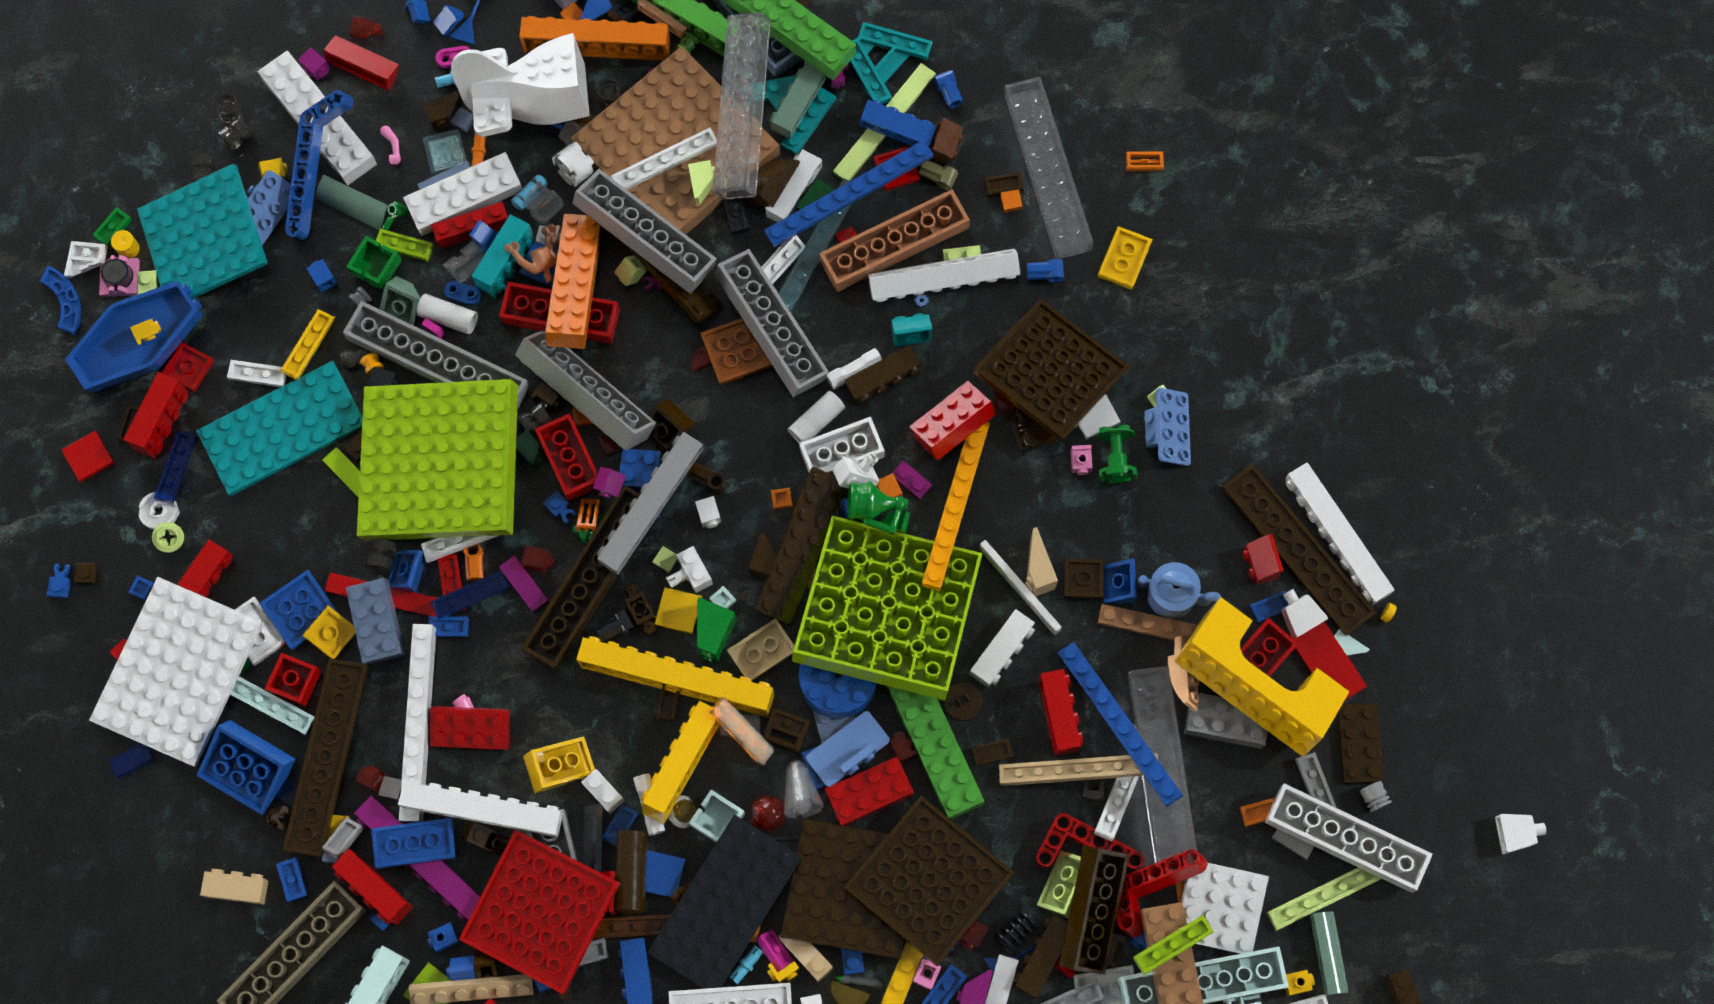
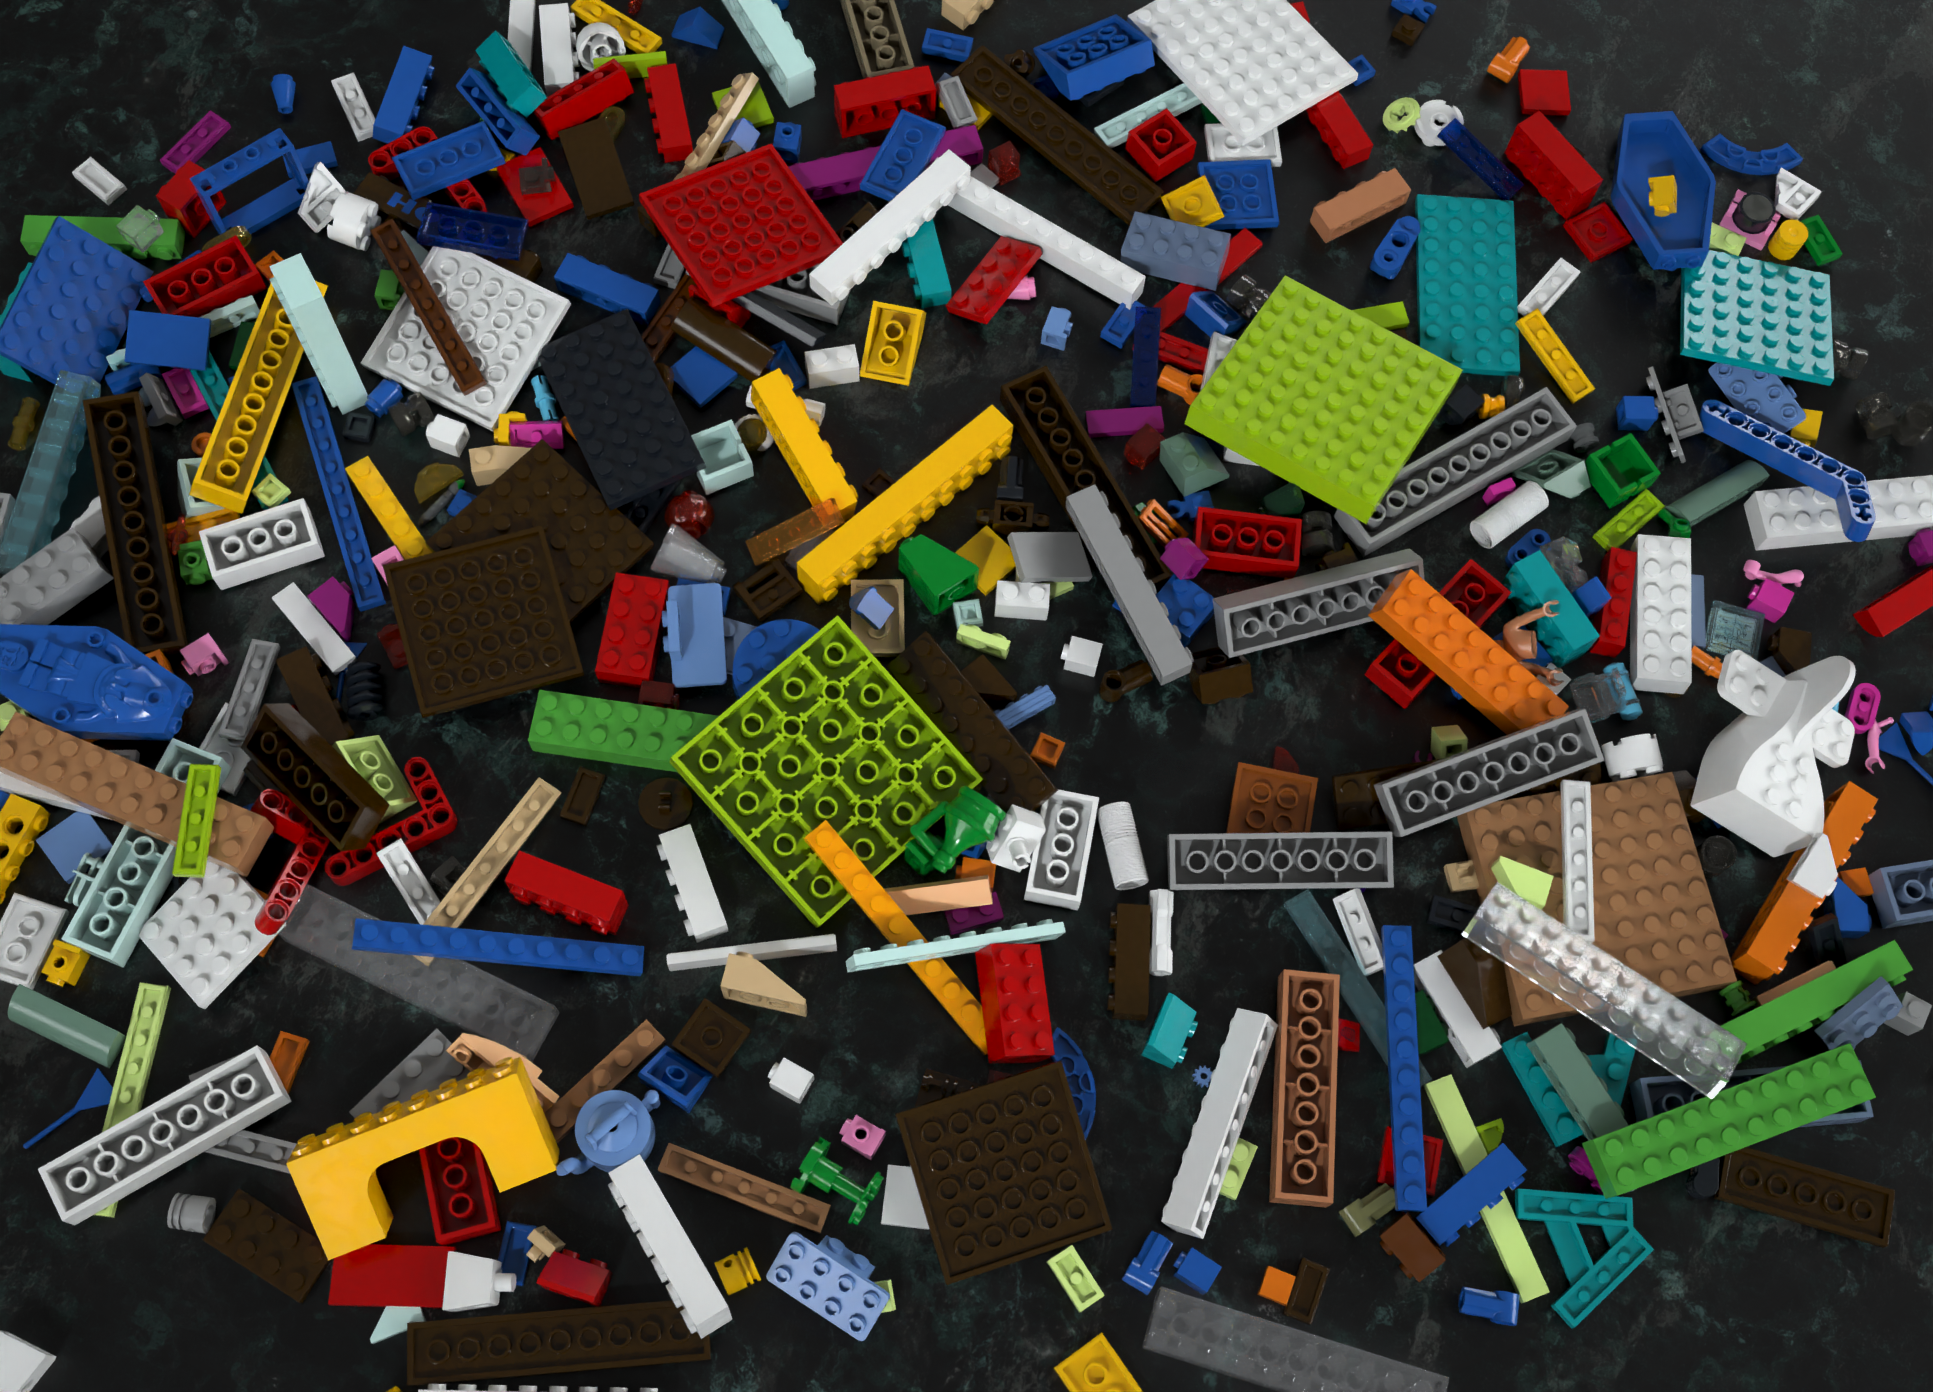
camera: 115 degrees right, 5 degrees down
(80, 491) = (1507, 62): none -> orange piece
(261, 525) = (1360, 205): none -> nougat brick
(266, 485) = (1402, 234): none -> blue piece
(305, 250) = (1679, 412): none -> light grey bracket
(411, 138) = (1770, 599): none -> dark pink brick
(472, 42) = (1873, 743): none -> bright pink piece
(480, 665) = (1057, 328): none -> medium blue brick
(489, 775) = (927, 266): none -> teal brick
(531, 521) = (1191, 463): none -> sand green slope
(593, 28) = (1816, 868): none -> white slope
(655, 568) = (1049, 557): none -> light grey tile
(708, 225) = (1461, 876): none -> tan tile
(737, 585) = (975, 638): none -> yellowish green plate
(761, 525) = (1026, 706): none -> medium blue piece
(761, 655) = (871, 607): none -> tile
(853, 134) = (1491, 1134): none -> lime tile
(916, 501) = (942, 895): none -> light nougat tile
(948, 471) = (944, 946): none -> light aqua plate
(964, 369) = (1078, 1077): none -> blue tile
(1032, 243) = (1196, 1270): none -> blue brick
(1077, 518) = (790, 1080): none -> white brick
(1079, 303) = (1075, 1278): none -> yellowish green plate
(1153, 506) = (744, 1188): none -> medium nougat plate
(1198, 479) = (737, 1271): none -> yellow piece
(1215, 513) = (673, 1251): none -> white brick
(1256, 592) = (544, 1243): none -> tan tile
(1352, 907) = (95, 1094): none -> blue piece

